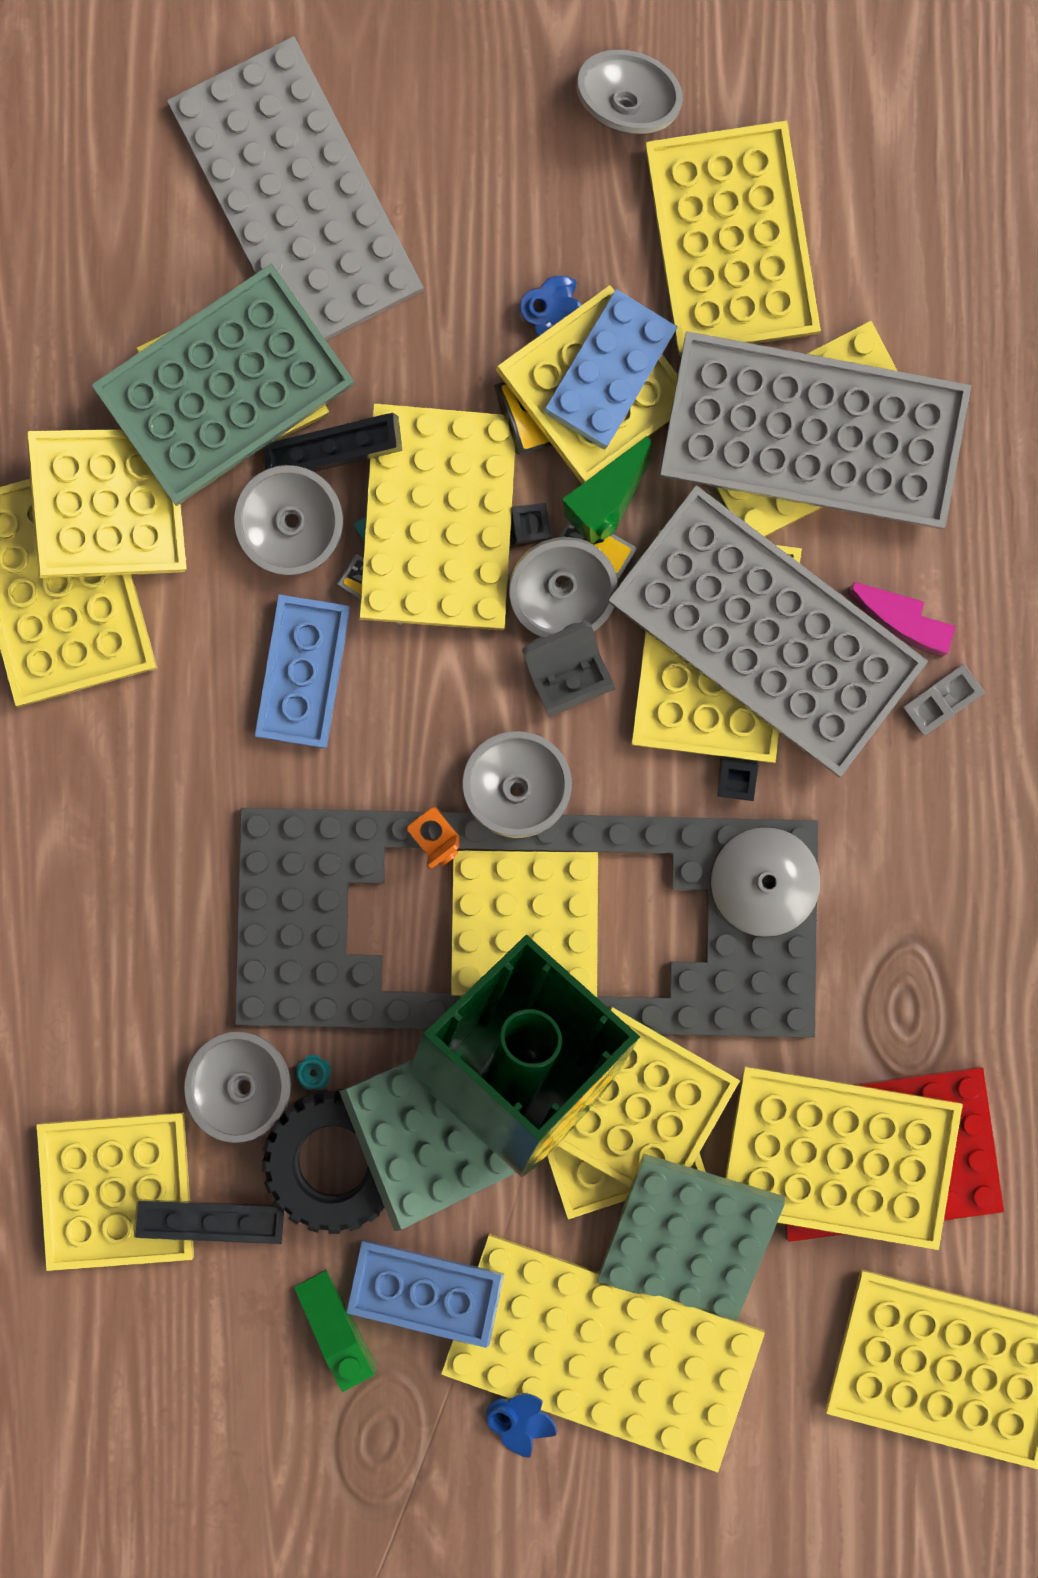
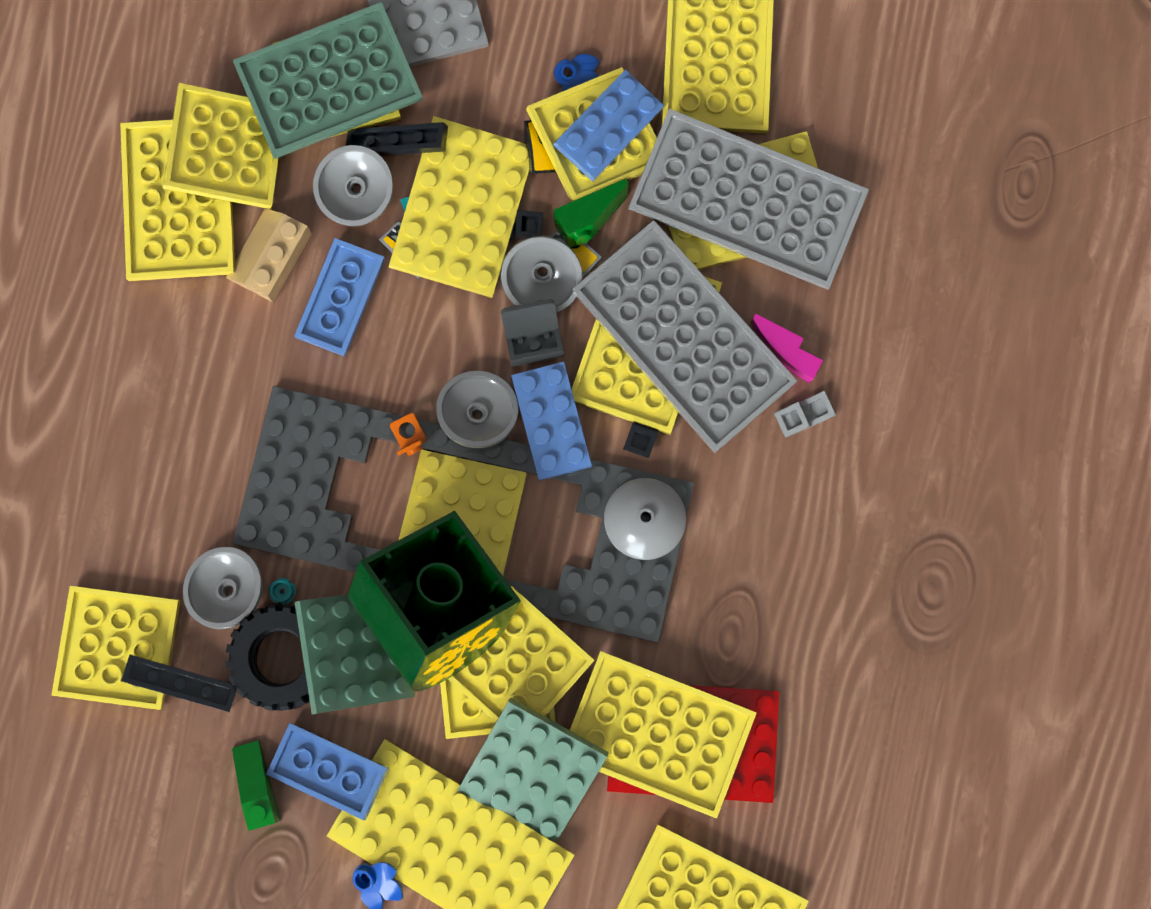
camera: 15 degrees right, 5 degrees down
(196, 632) = (270, 254): none -> tan slope
(617, 779) = (551, 421): none -> medium blue plate

